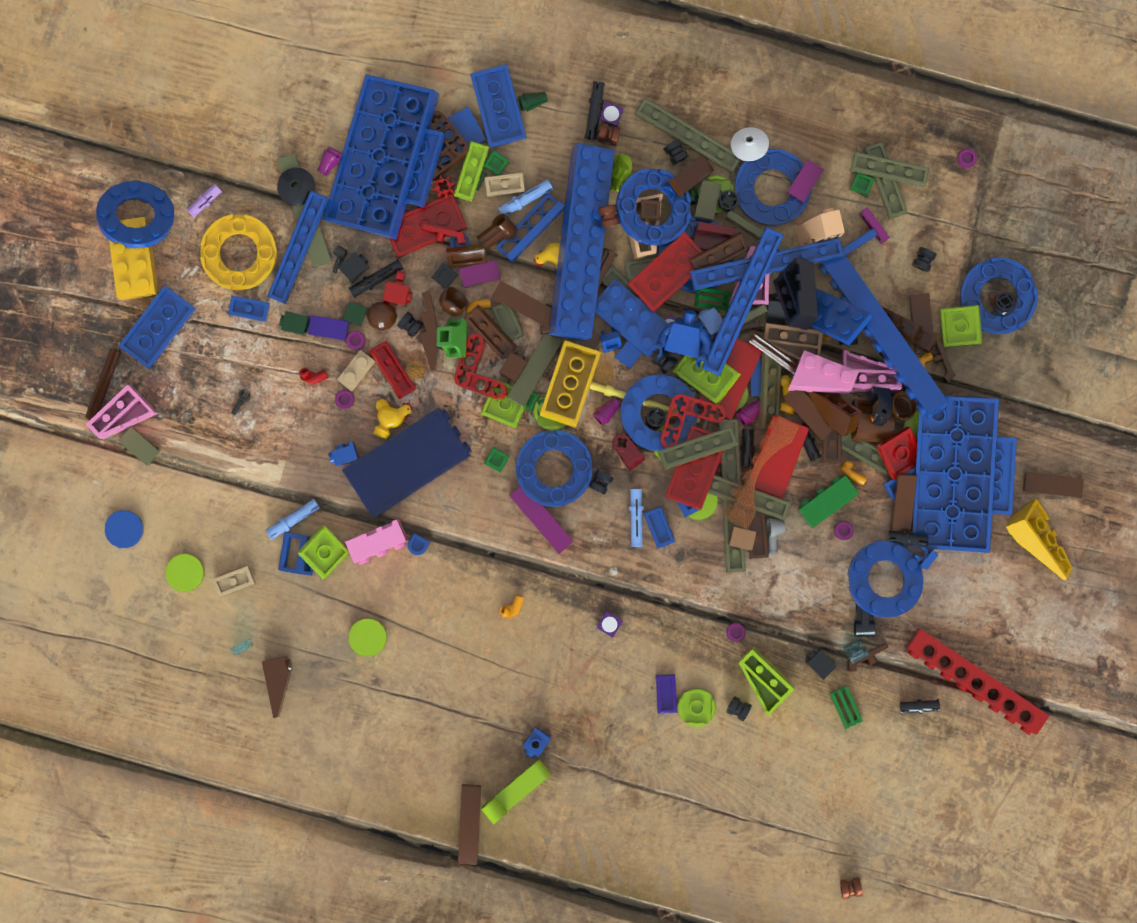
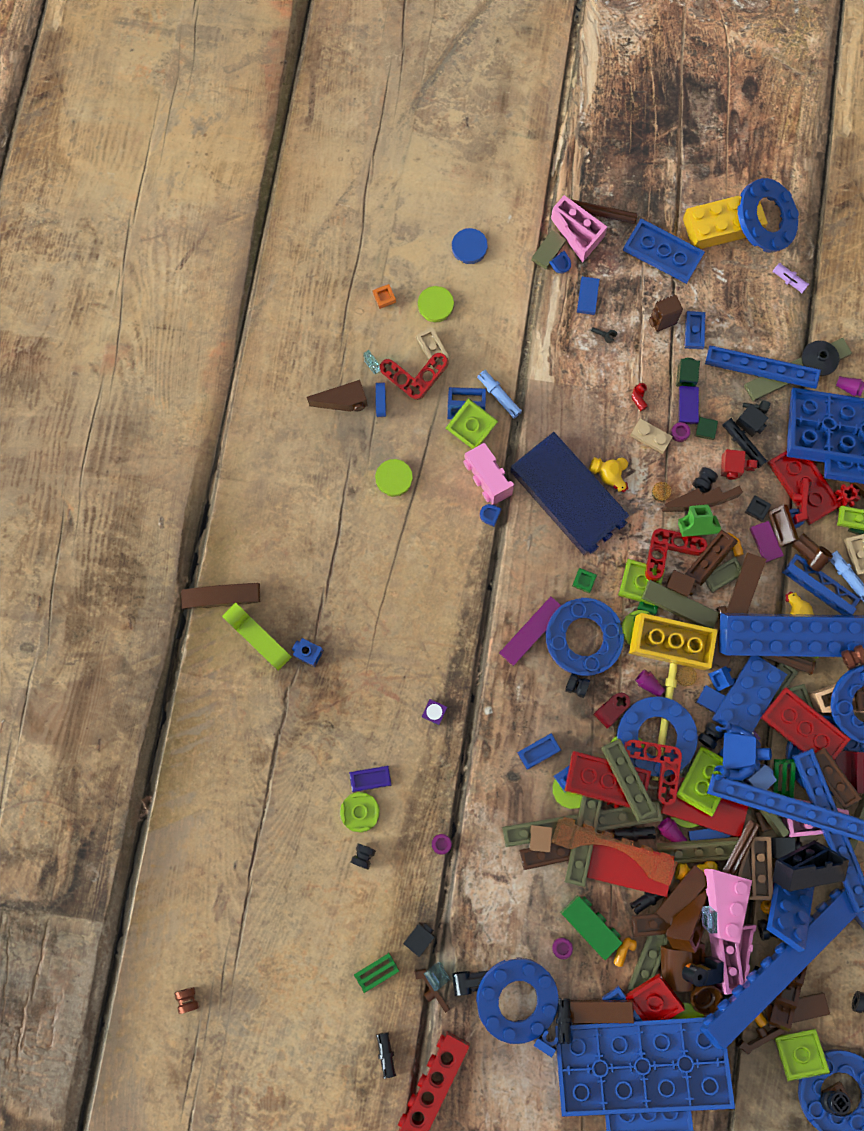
camera: 80 degrees right, 10 degrees down
(156, 435) = (561, 263): none -> blue tile
(170, 625) = (384, 296): none -> orange plate
(196, 412) = (588, 295): none -> blue tile
(211, 248) = (756, 291): yellow plate -> none
(230, 338) = (666, 313): none -> reddish brown brick
(269, 600) = (418, 381): none -> red beam
(280, 641) = (380, 400): none -> blue beam
(344, 399) = (621, 429): magenta tile -> none
(344, 454) = (569, 433): blue brick -> none
(381, 316) = (708, 453): reddish brown hair -> none
(392, 370) = (657, 469): red tile -> none
(453, 301) = (735, 517): reddish brown hair -> none
(513, 609) = (437, 613): light orange arm -> none
(636, 494) = (570, 723): light blue pin -> none
(657, 415) = (655, 733): black wheel -> none
(766, 680) = (396, 881): lime wedge -> none
(774, 527) = (555, 872): light grey bar -> none
(834, 394) = (709, 919): none -> clear light blue tile

